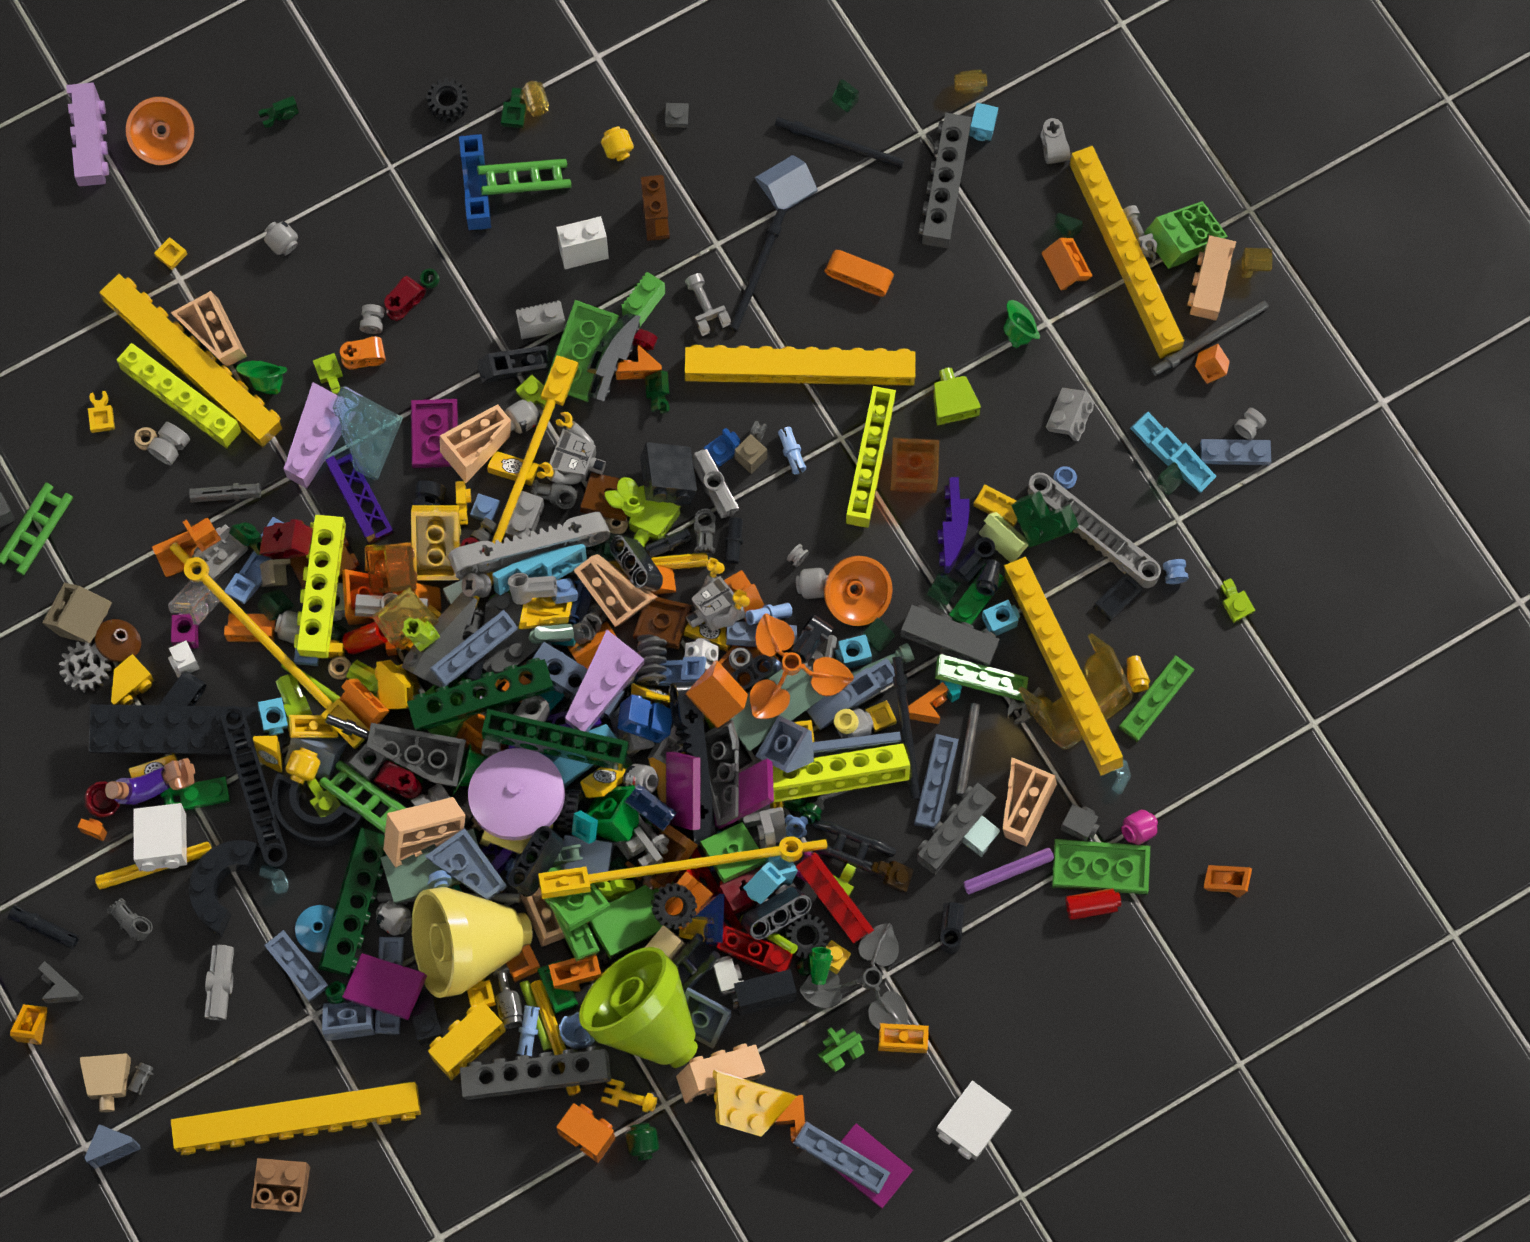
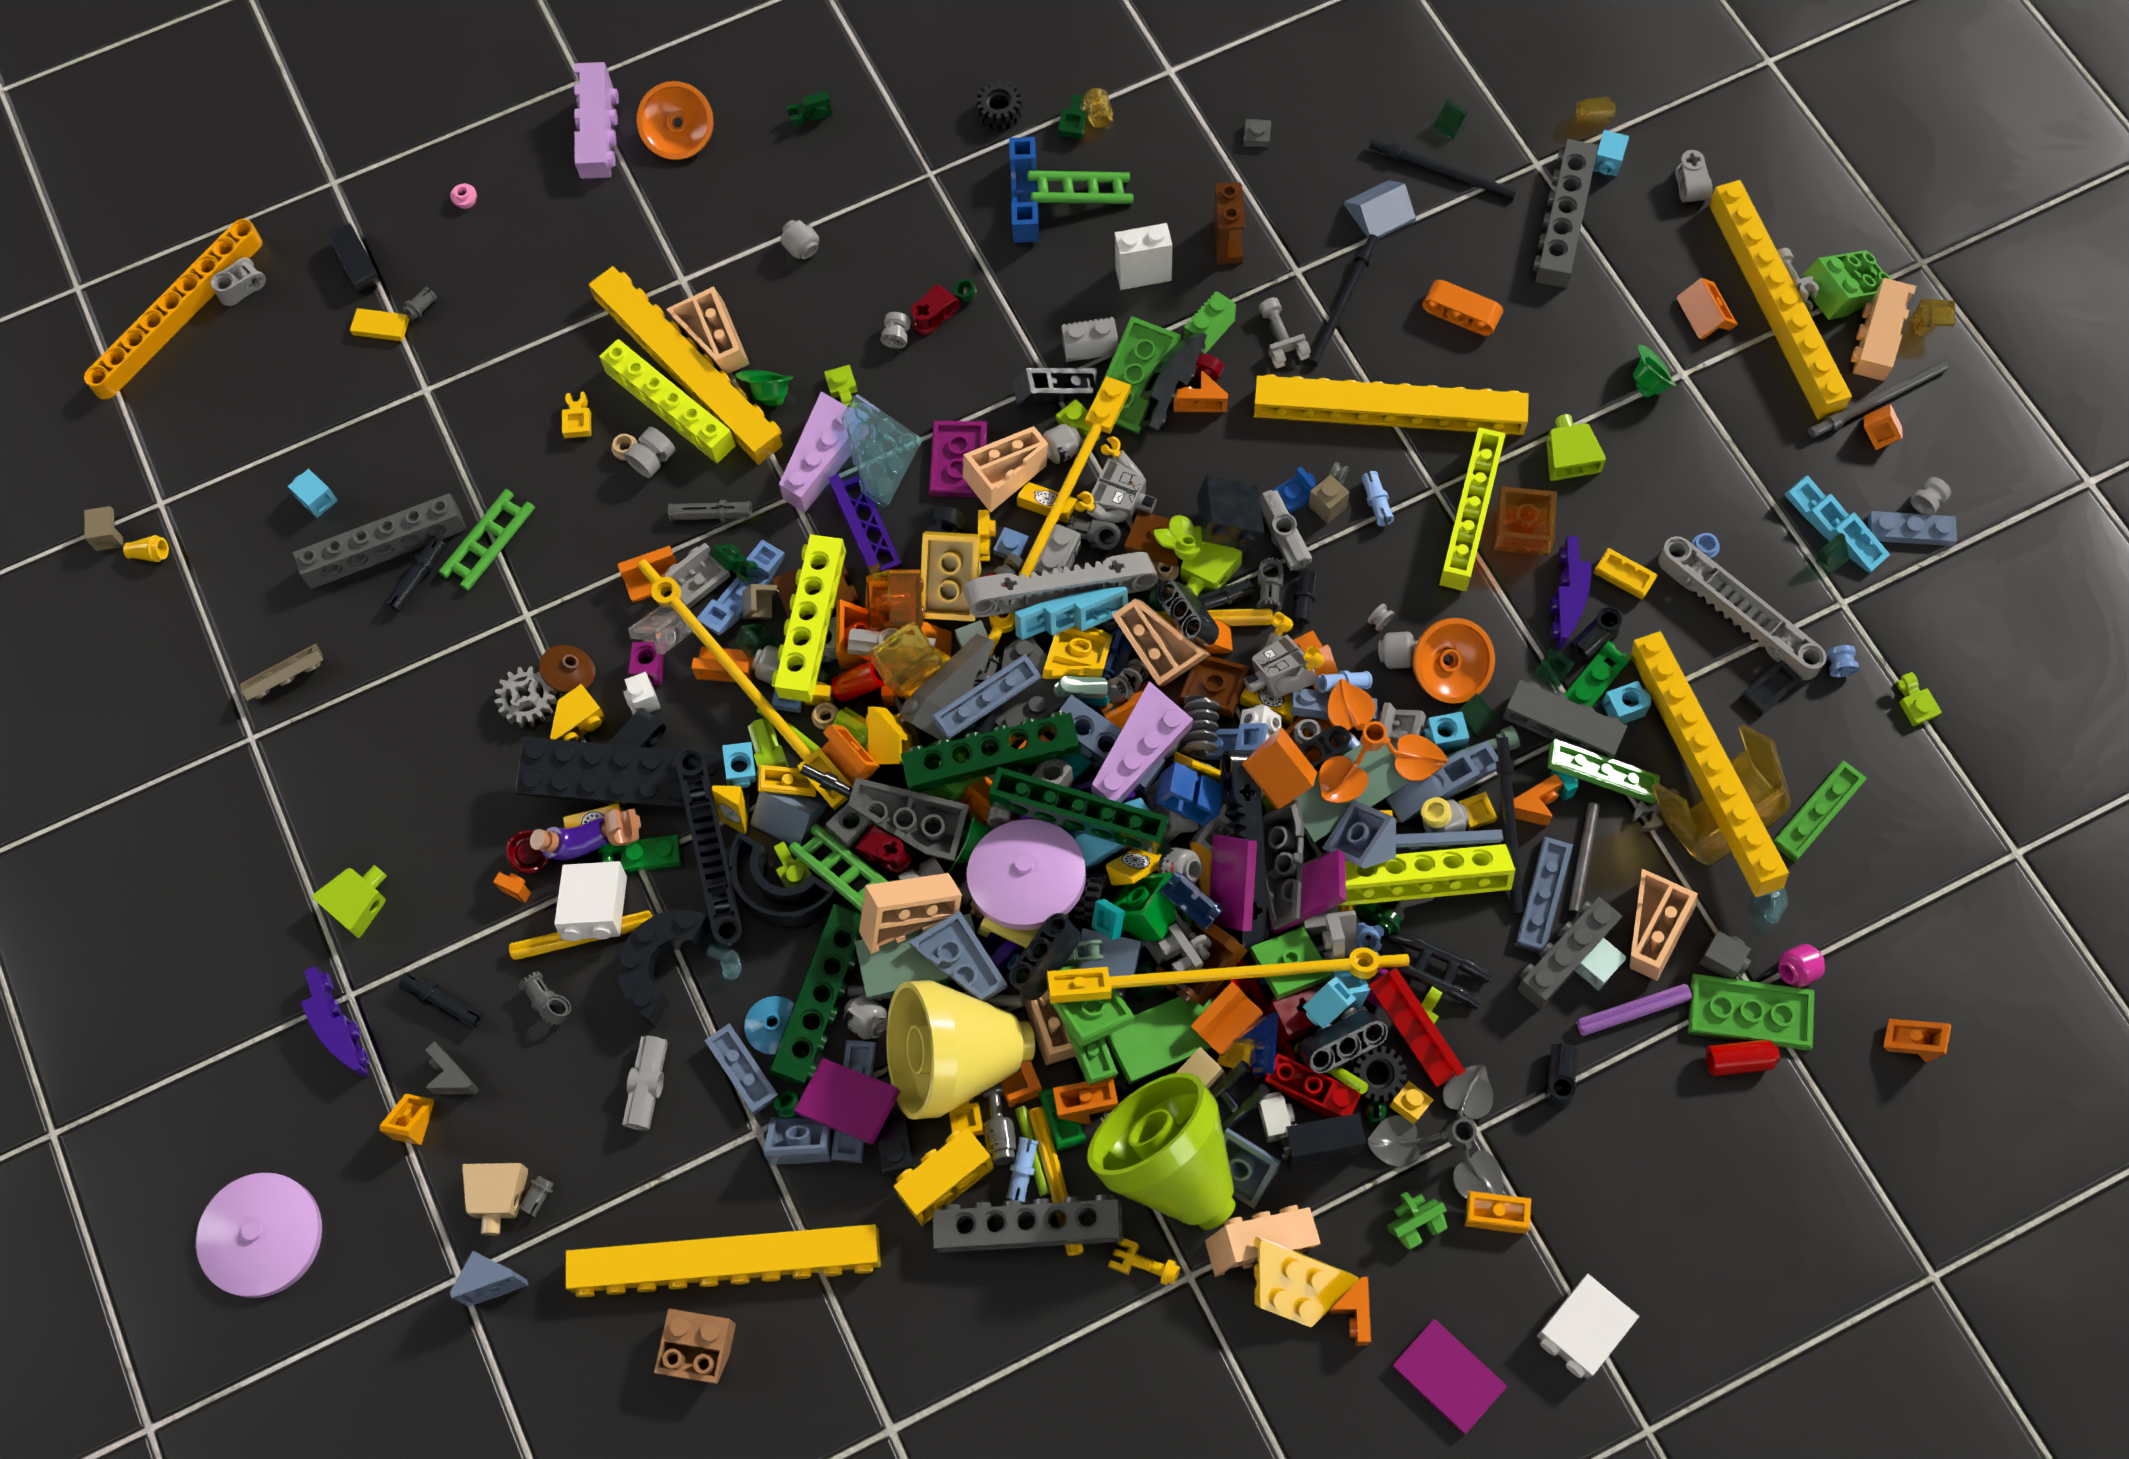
camera: 10 degrees right, 5 degrees down
(76, 613) = (521, 634): dark tan slope -> none
(170, 253) = (674, 250): yellow plate -> none
(203, 533) = (677, 551): orange panel -> none
(286, 540) = (773, 562): dark red brick -> none
(302, 765) = (770, 825): yellow head -> none
(365, 353) = (883, 365): orange piece -> none
(420, 633) = (923, 674): lime piece -> none
(439, 879) = (924, 971): medium blue plate -> none
(476, 585) = (994, 624): flat silver wheel -> none
(526, 588) = (1053, 632): light grey piece -> none
(565, 591) = (1097, 639): medium blue plate -> none
(573, 1033) = (1080, 1177): light blue hair -> none
(582, 1128) = (1084, 1301): orange piece -> none
(615, 889) = (1142, 998): lime plate -> none
(617, 143) = (1188, 158): yellow head -> none
(642, 1141) = (1158, 1322): dark green head -> none
(656, 388) = (1221, 419): dark green plate -> none
(660, 900) = (1196, 1023): black tyre -> none
(814, 634) = (1400, 706): black piece -> none
(820, 964) = (1395, 1110): green cone -> none
(841, 1158) = (1415, 1363): sand blue tile -> none
(895, 874) = (1491, 1004): dark brown plate -> none
(989, 578) = (1614, 656): black cone -> none
(1005, 536) = (1637, 613): yellowish green panel -> none
(1039, 523) = (1677, 595): dark green brick -> none
(1067, 225) = (1709, 266): clear green slope -> none
(1070, 413) = (1712, 473): light grey bracket -> none
(1137, 674) = (1797, 780): yellow cone -> none

